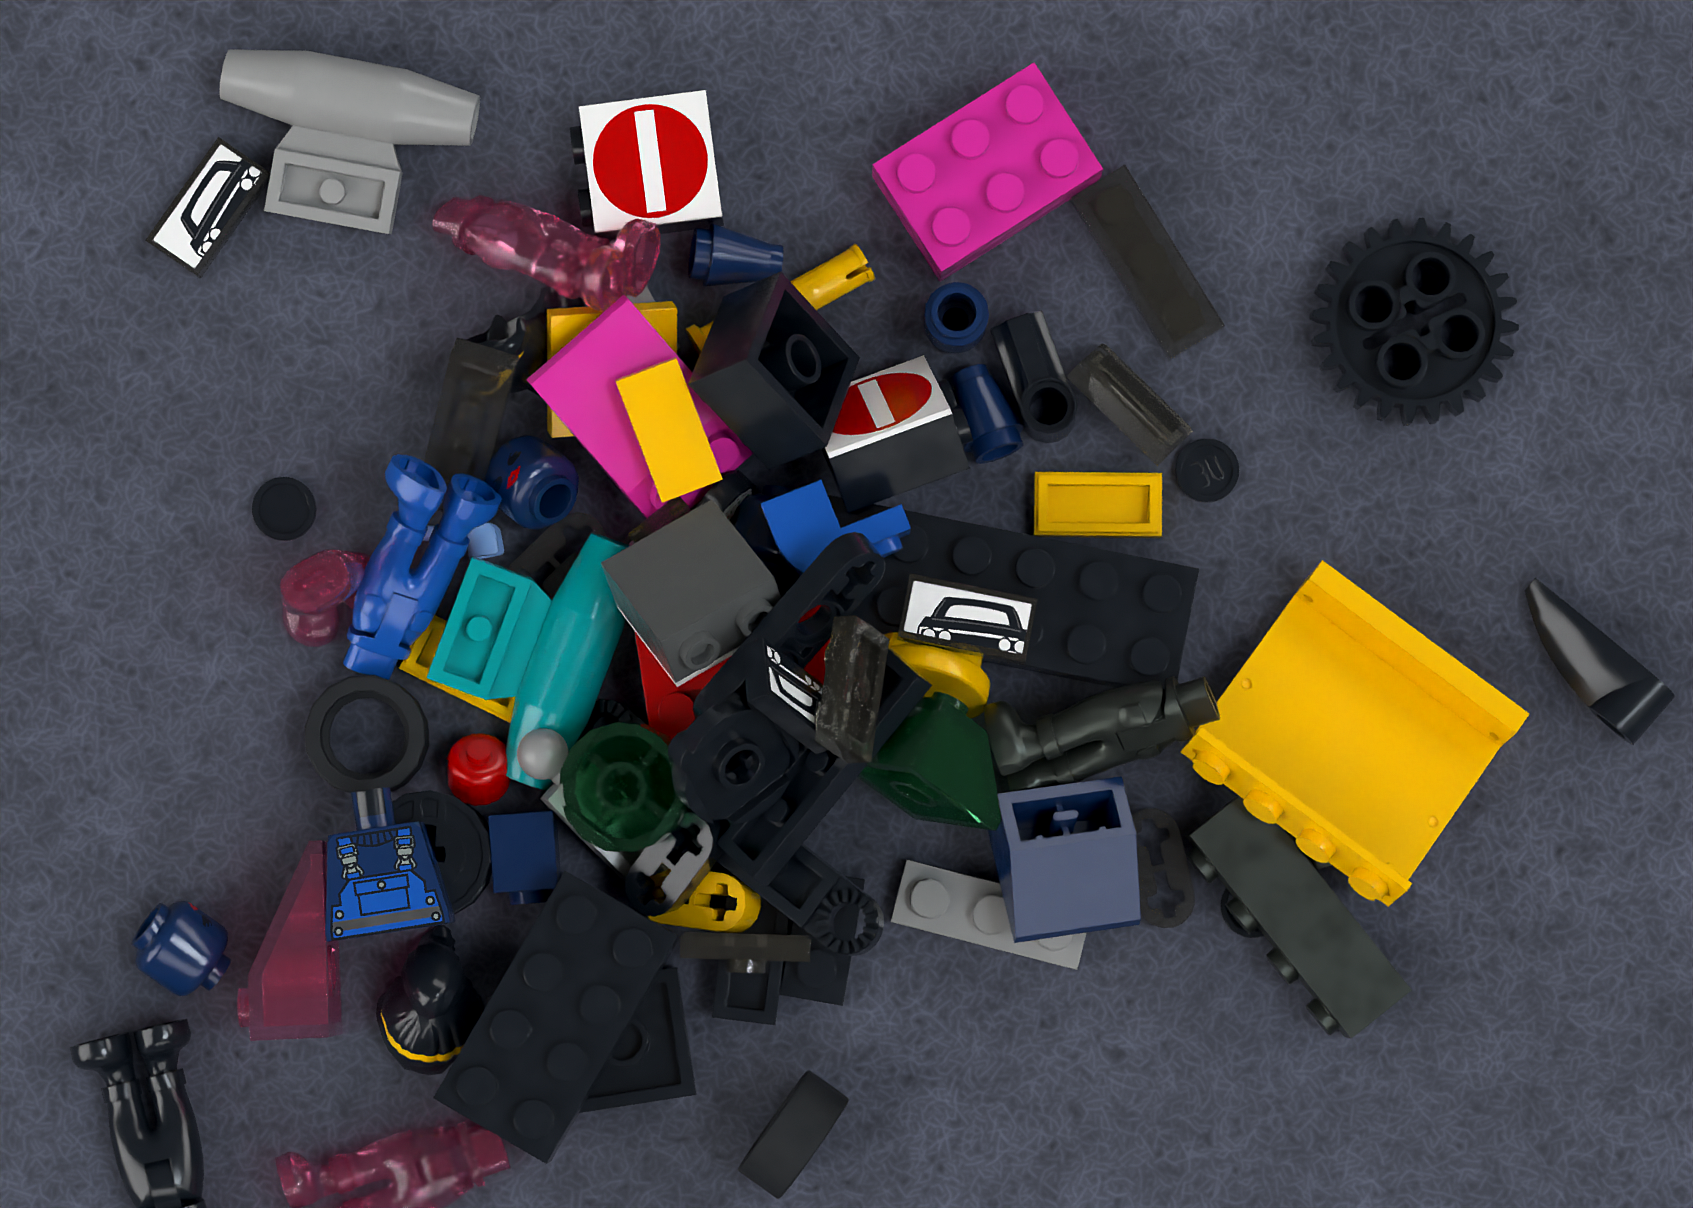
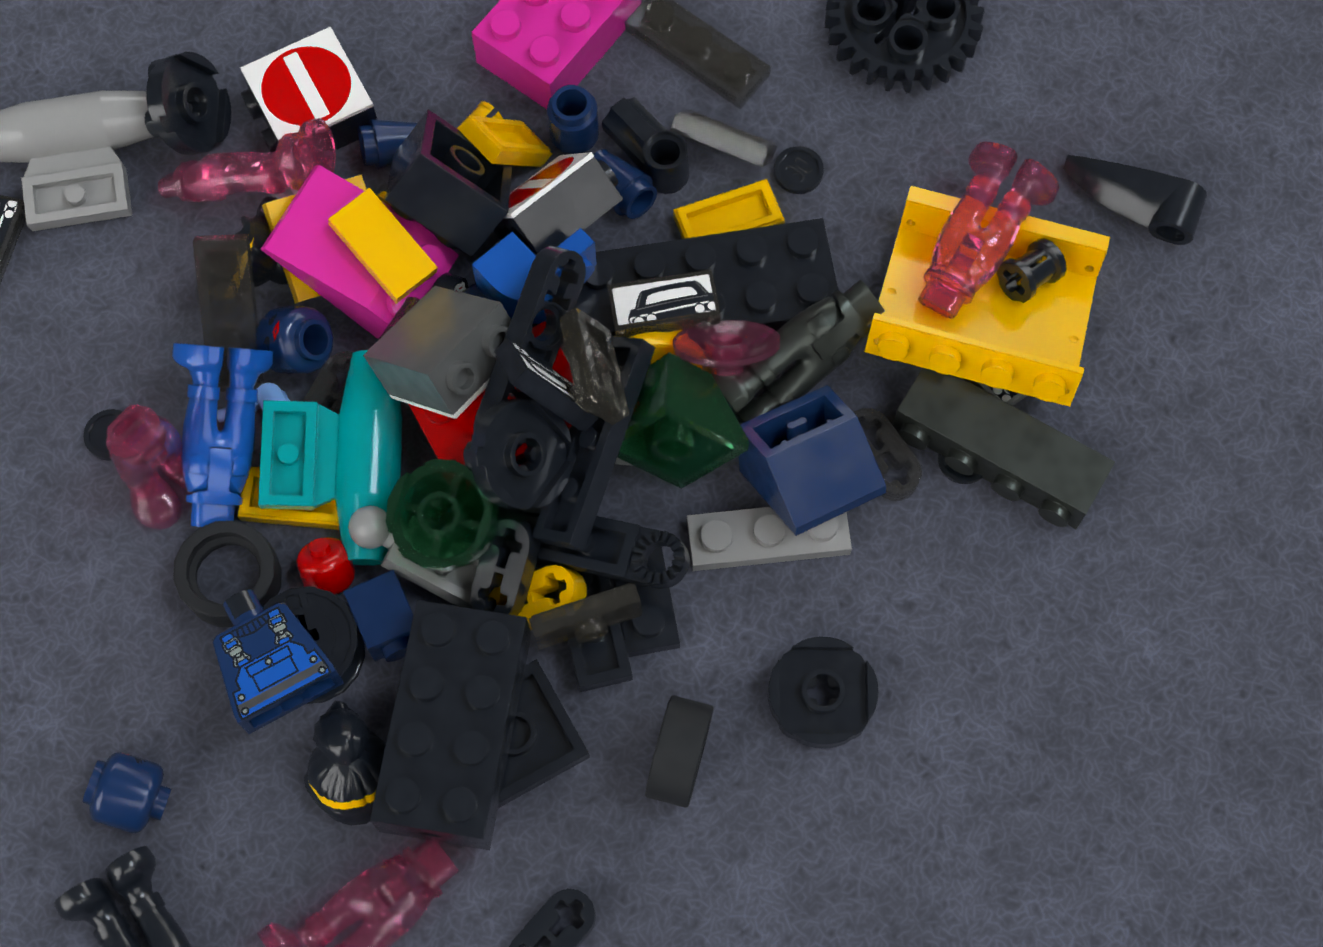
camera: 20 degrees left, 15 degrees down
(296, 971) = (221, 763): clear pink slope -> none
(476, 142) = (182, 80): none -> black plate
(864, 321) = (505, 141): none -> yellow tile
(994, 1154) = (844, 671): none -> black plate
(1018, 703) = (727, 345): none -> clear pink dish
(1348, 678) = (967, 253): none -> clear pink piece
(1440, 716) = (1031, 270): none -> black bush

